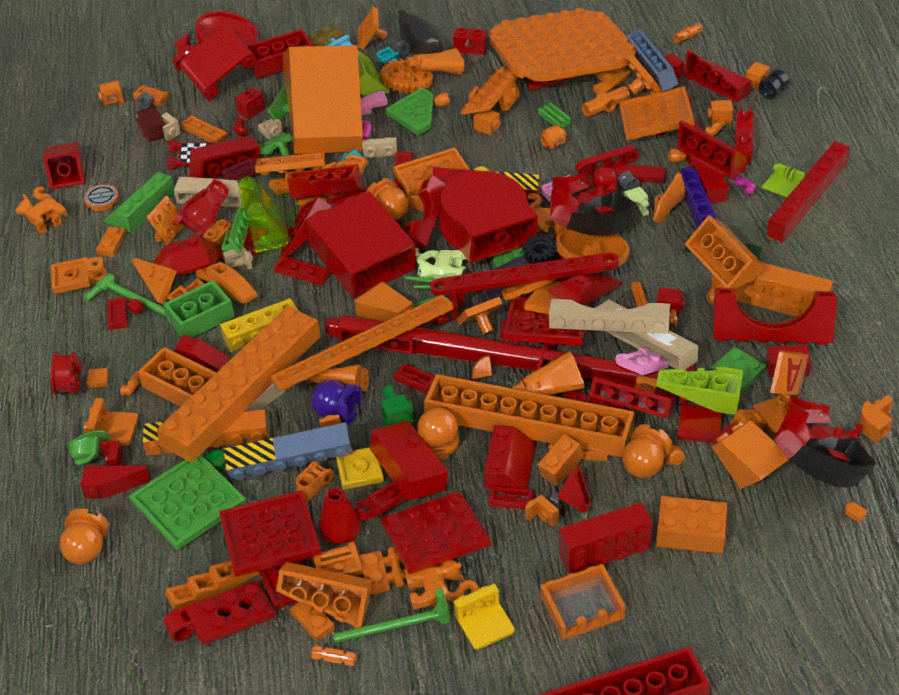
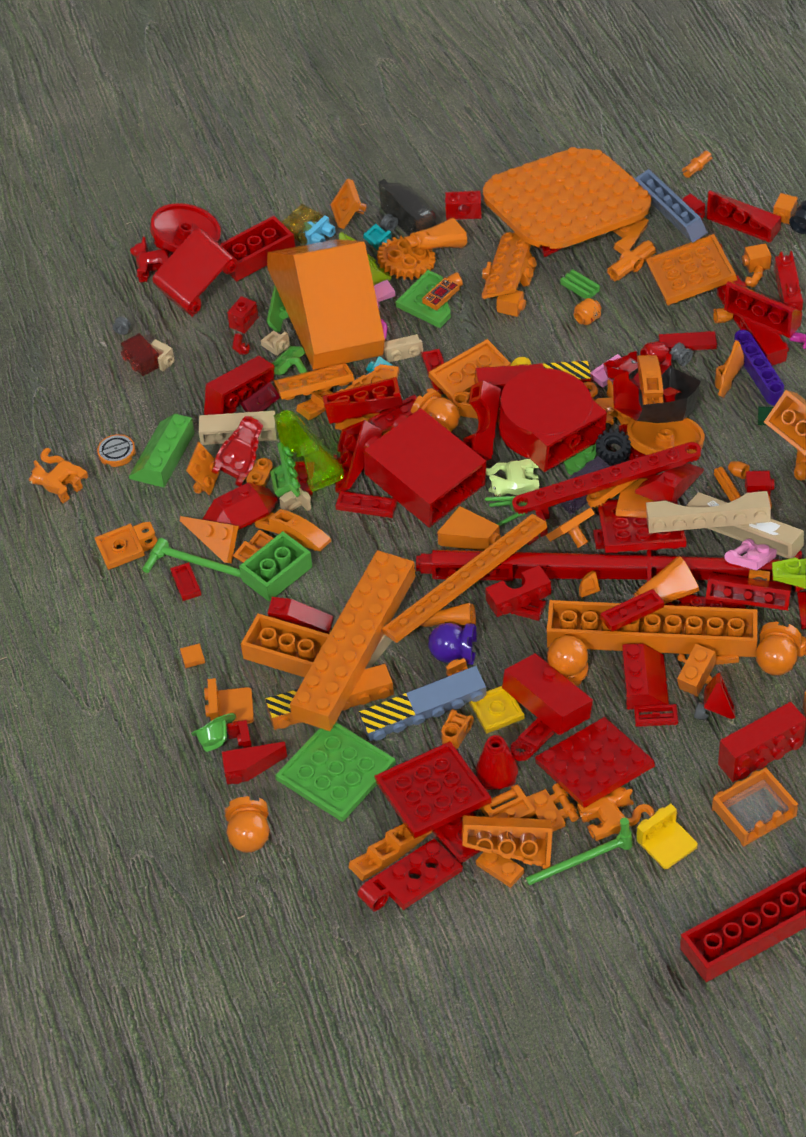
camera: 10 degrees left, 5 degrees up
(64, 165) = (62, 417): red slope -> none
(65, 373) = (161, 657): red wheel -> none
(110, 93) = (79, 322): orange window -> none
(111, 241) = (147, 500): orange plate -> none
(131, 386) = (233, 657): orange arm -> none
(135, 306) = (203, 571): red plate -> none
(158, 95) = (136, 318): orange tile -> none
(184, 156) = (193, 382): flag -> none
(204, 130) = (201, 353): orange tile -> none
(216, 459) = (350, 722): green tile -> none
(244, 328) = (341, 573): yellow brick -> none
(333, 655) = (532, 897): orange axle -> none
(395, 408) = (518, 643): green brick -> none
(399, 369) = (506, 599): none -> red arch
(426, 106) = (440, 294): none -> tile
(510, 393) = (632, 610): none -> red plate
(544, 509) = (693, 721): orange bracket -> none
(589, 194) = (650, 379): none -> orange slope
(625, 156) = (638, 339): red beam -> none
(639, 197) = (698, 371): yellowish green plate -> none
(643, 78) = (667, 229): orange plate -> none
(653, 285) = (738, 469): none -> orange hose

